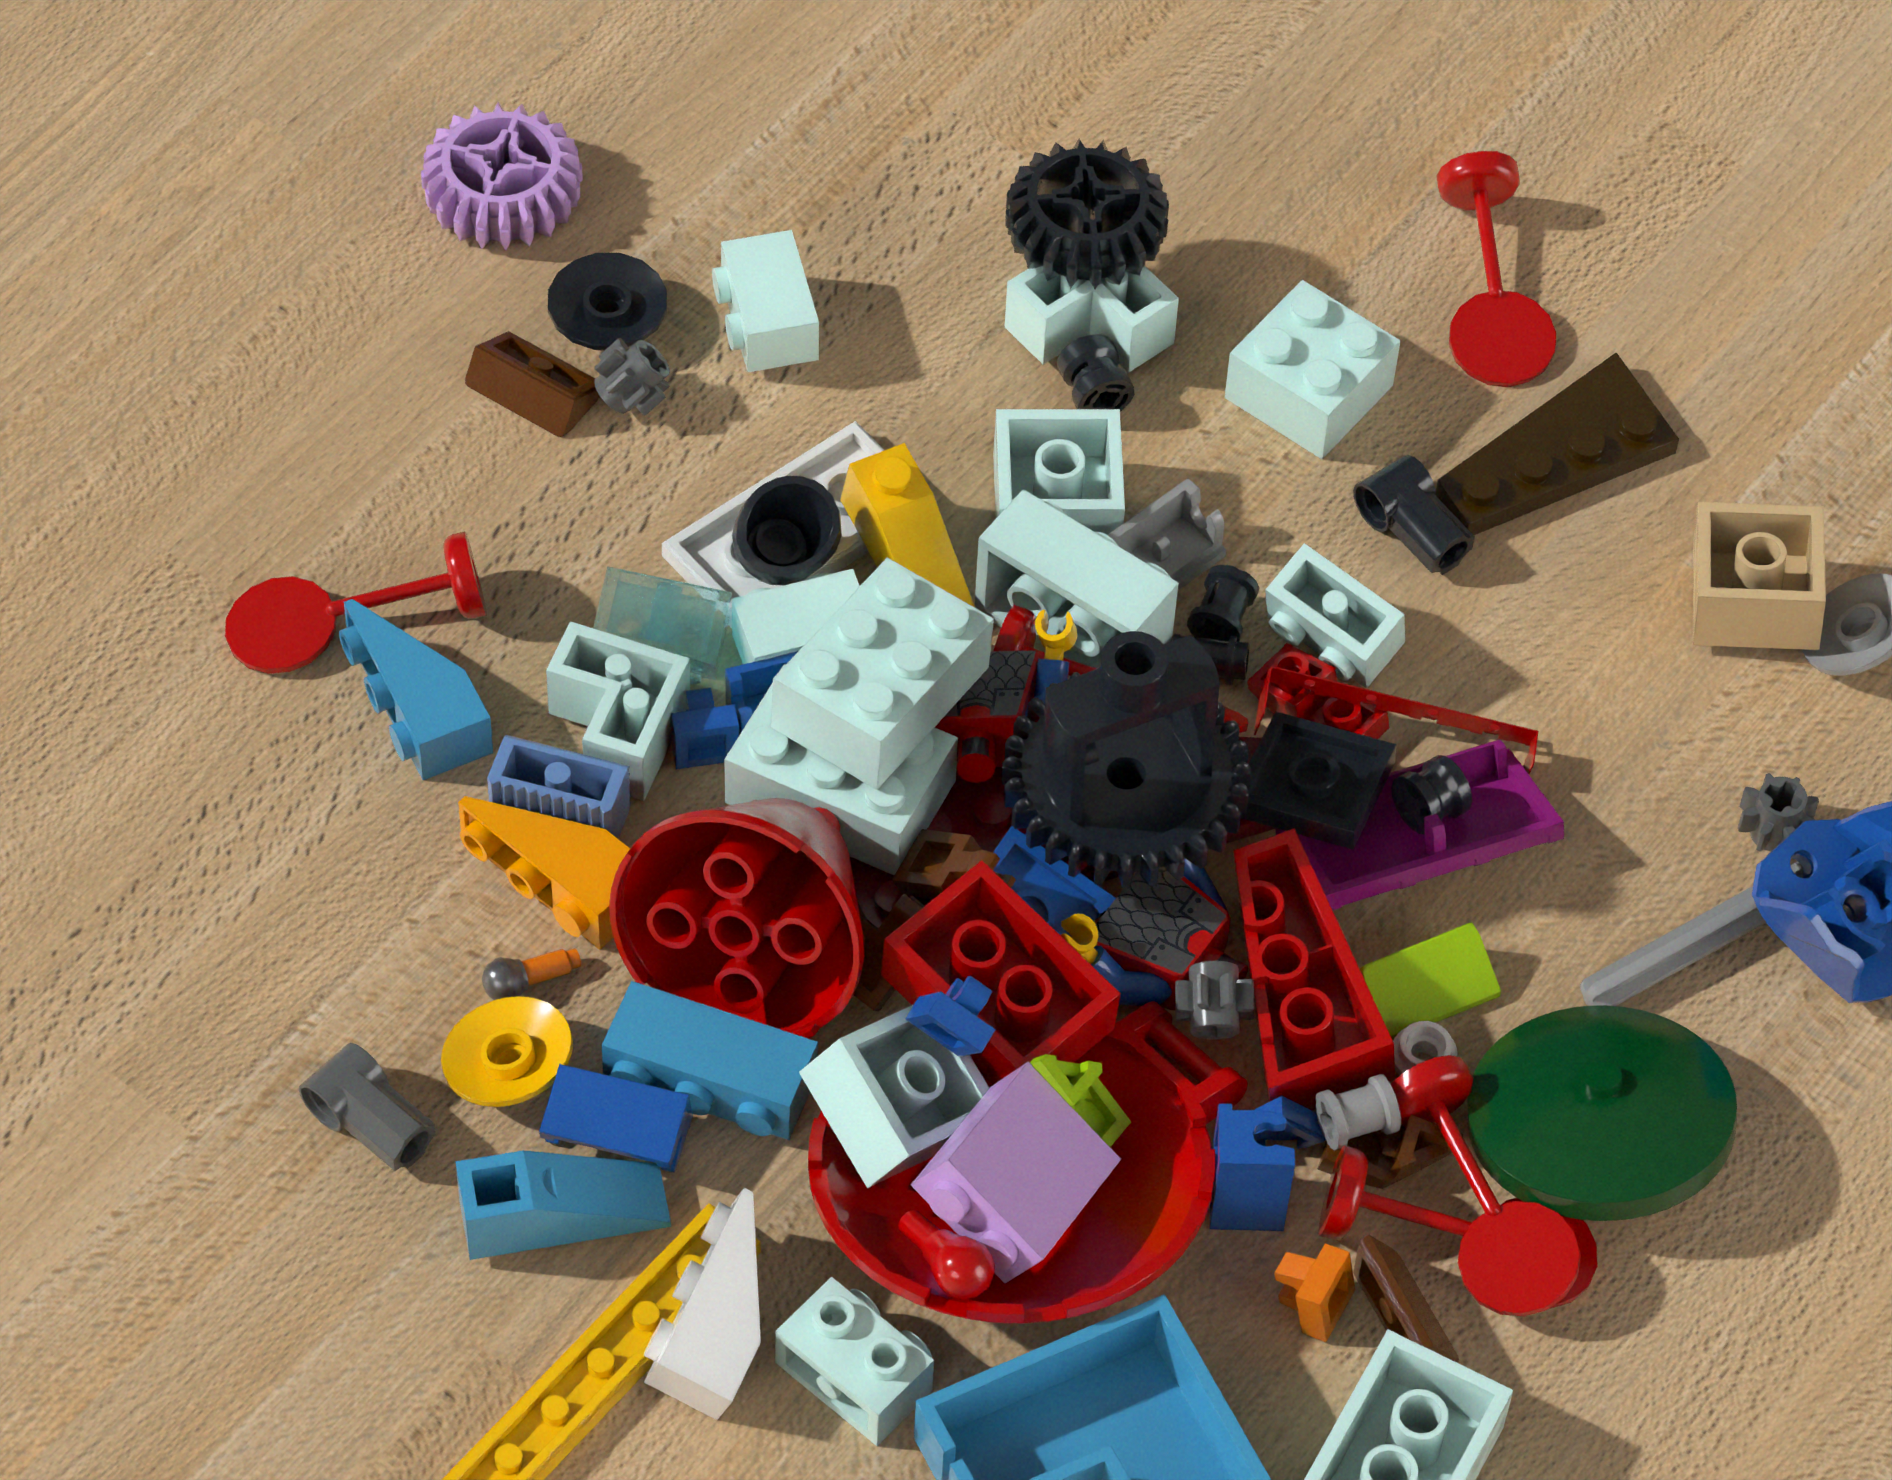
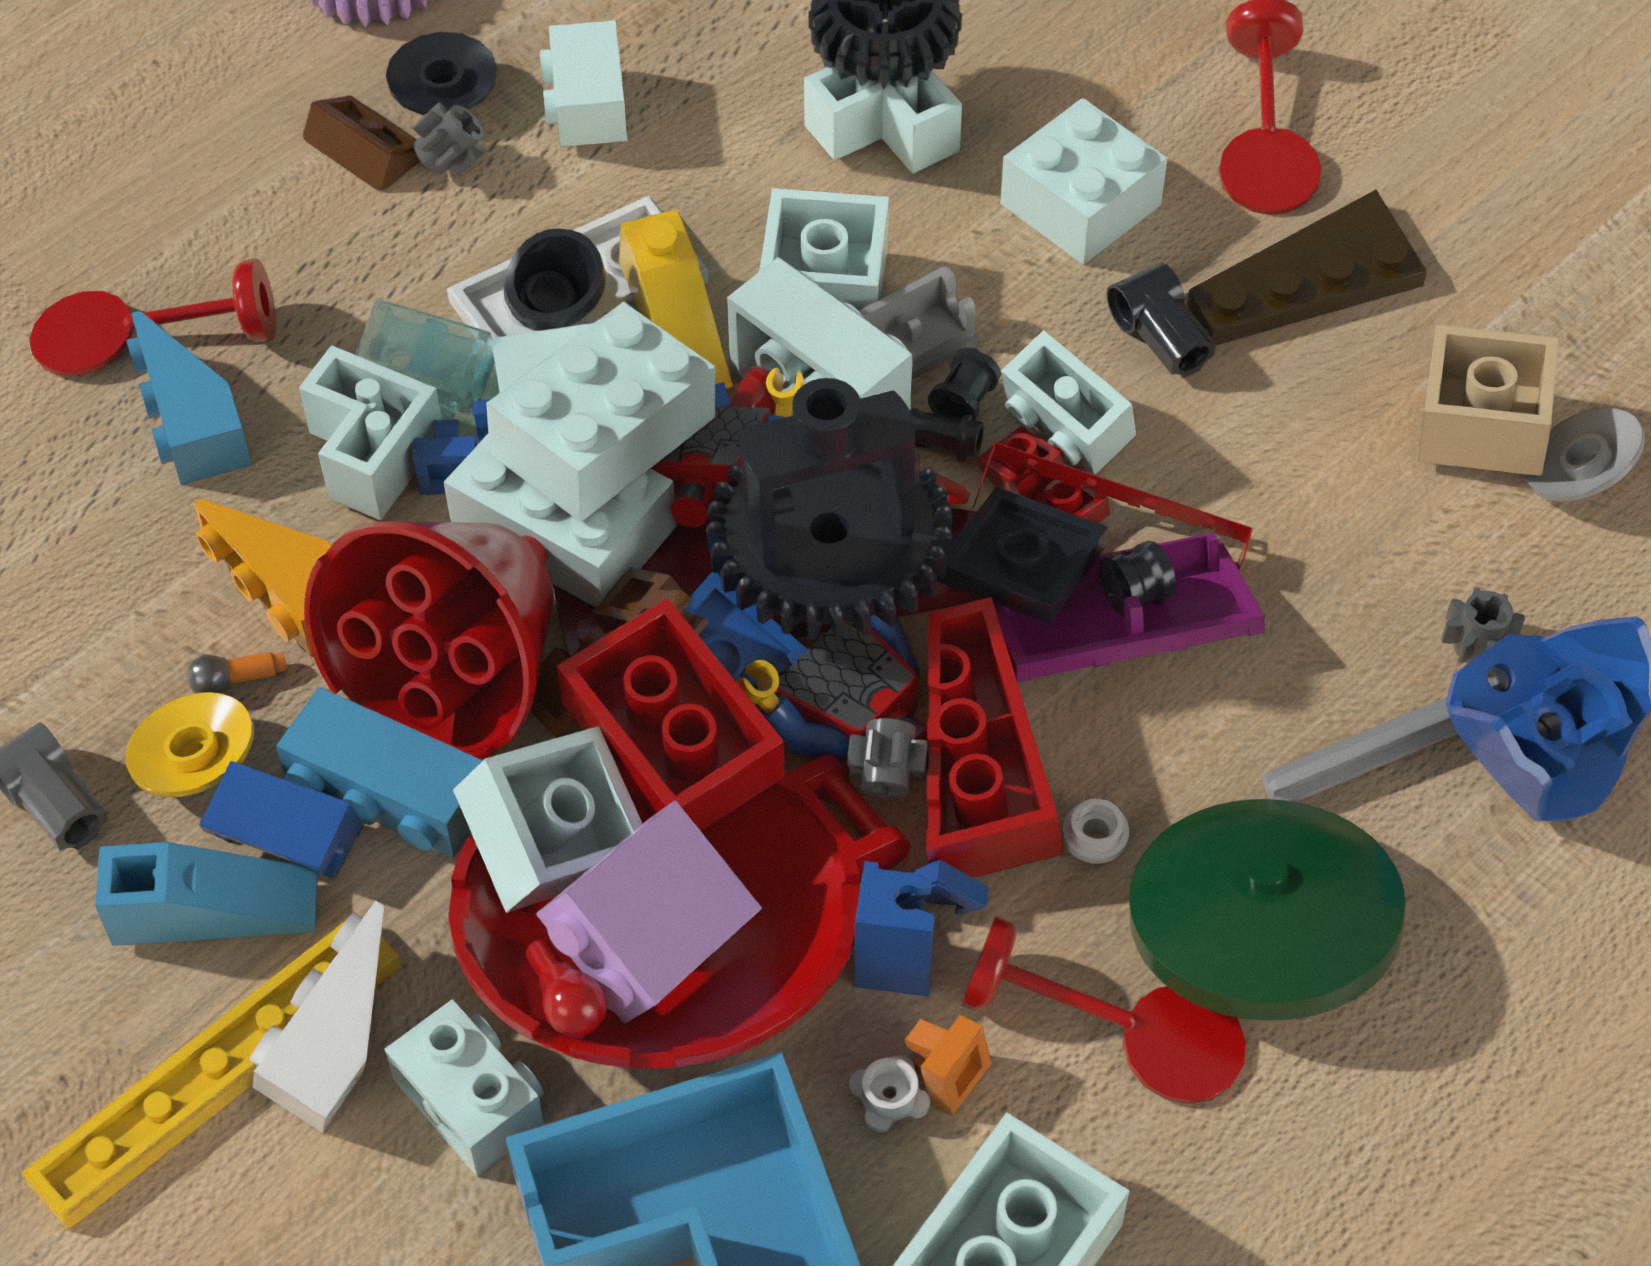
camera: 10 degrees right, 0 degrees up
(560, 784) = (292, 494): medium blue brick -> none
(953, 1017) = (607, 749): blue tile -> none
(1085, 1094) = (736, 841): lime slope -> none
(1093, 371) = (883, 172): black wheel -> none
(1266, 1308) = (883, 1074): none -> white plate
(1358, 1112) = (1015, 883): light grey bush -> none
(1395, 1154) = (1044, 922): reddish brown slope -> none
(1398, 1297) = (1035, 1082): reddish brown slope -> none
(1432, 979) = (1110, 759): lime slope -> none
(1516, 1253) = (1160, 1043): red piece -> none

